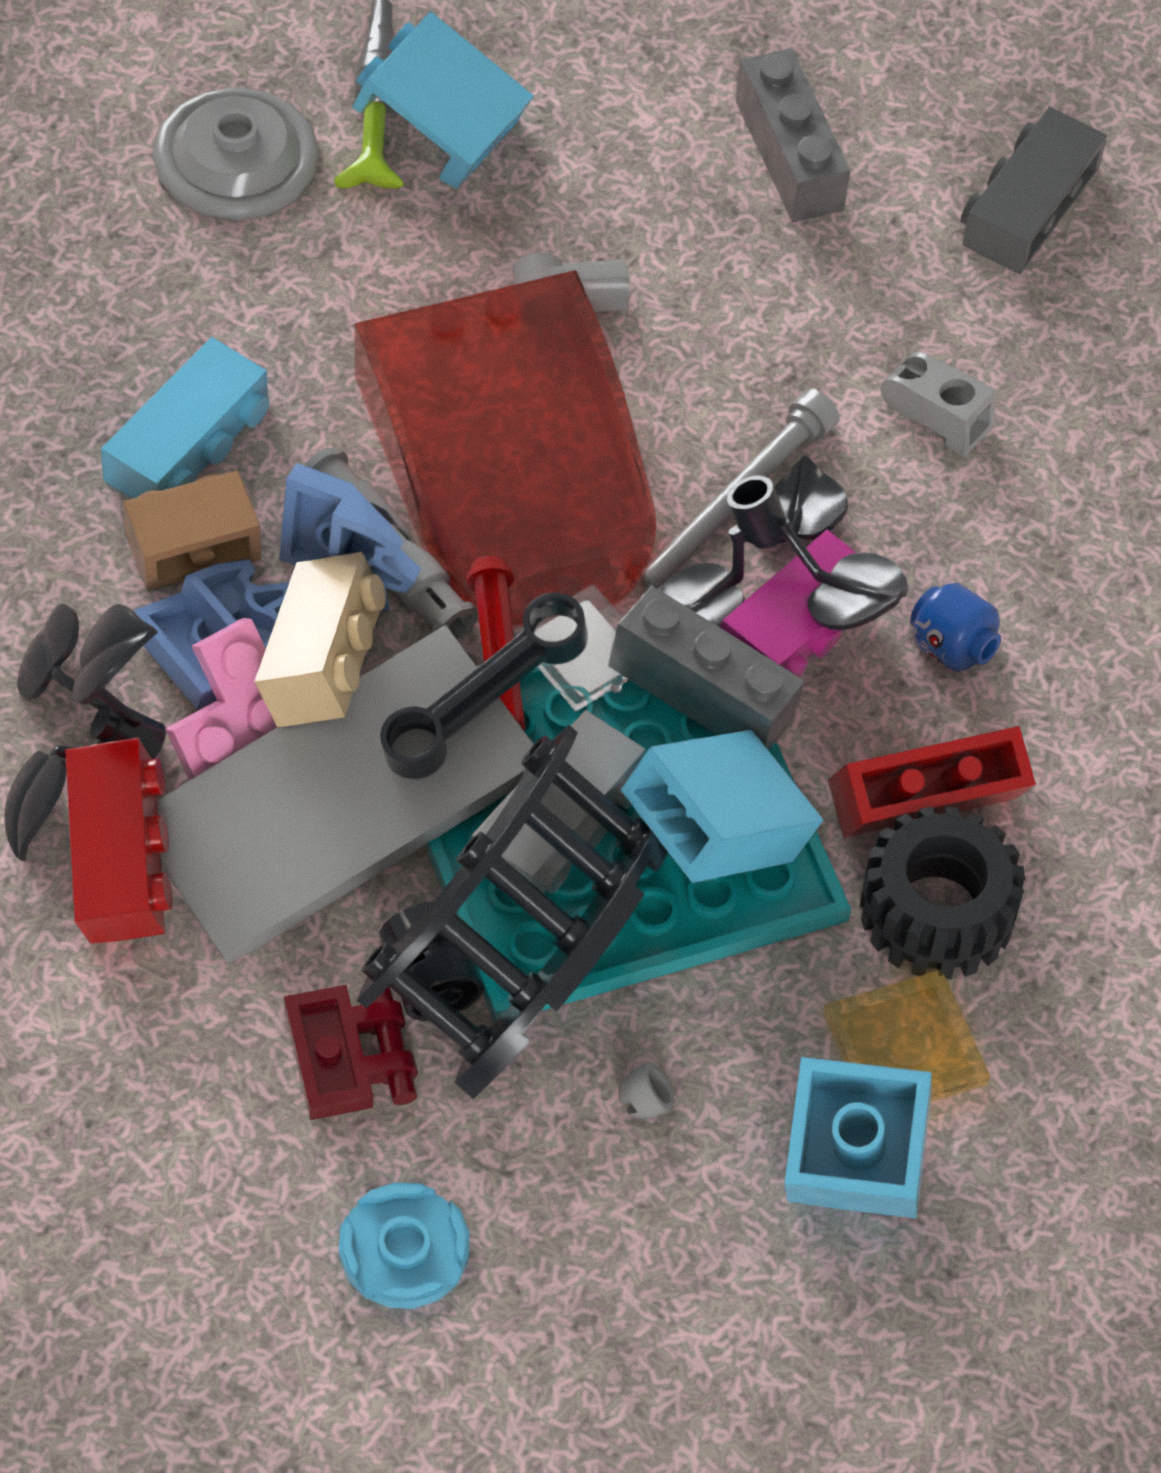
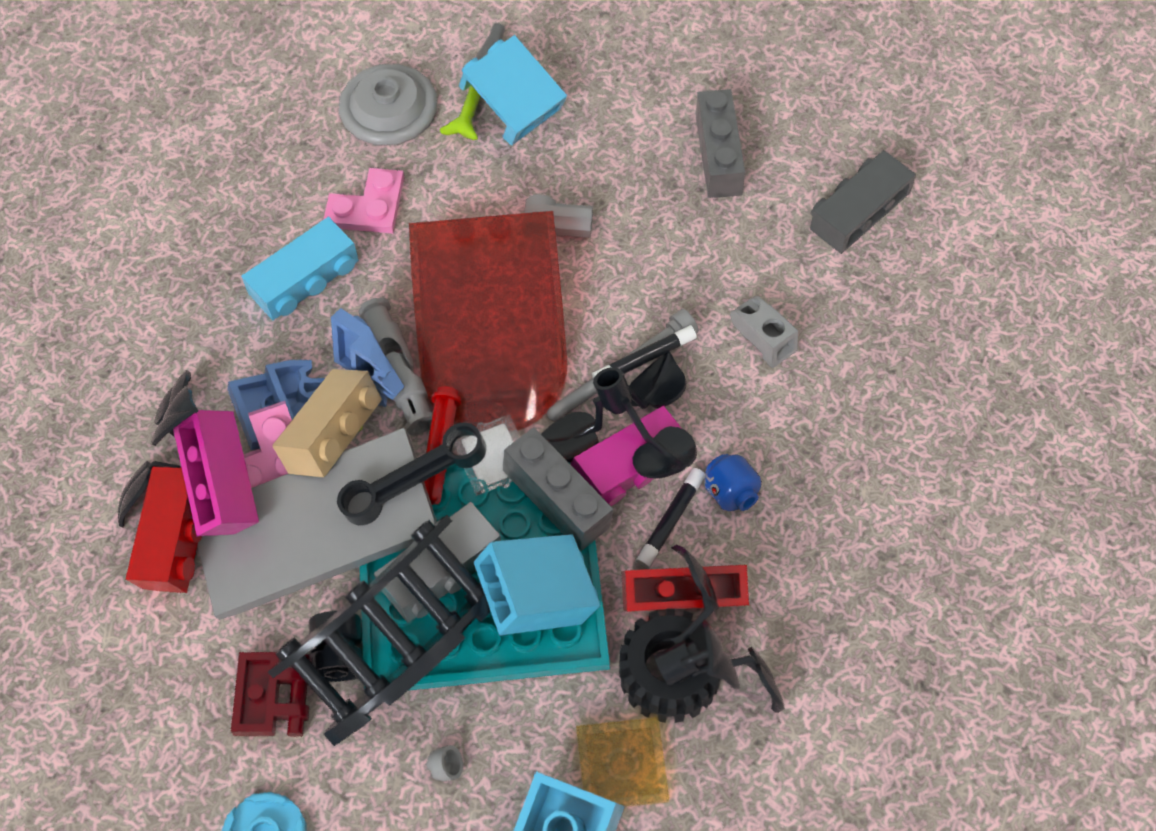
camera: 20 degrees right, 5 degrees up
(179, 740) = (215, 473): none -> dark pink brick
(191, 528) = (280, 335): medium nougat brick -> none
(270, 318) = (375, 209): none -> bright pink plate
(776, 461) = (653, 350): none -> black bar
(876, 691) = (670, 518): none -> black bar
(974, 863) = (687, 658): none -> black plant

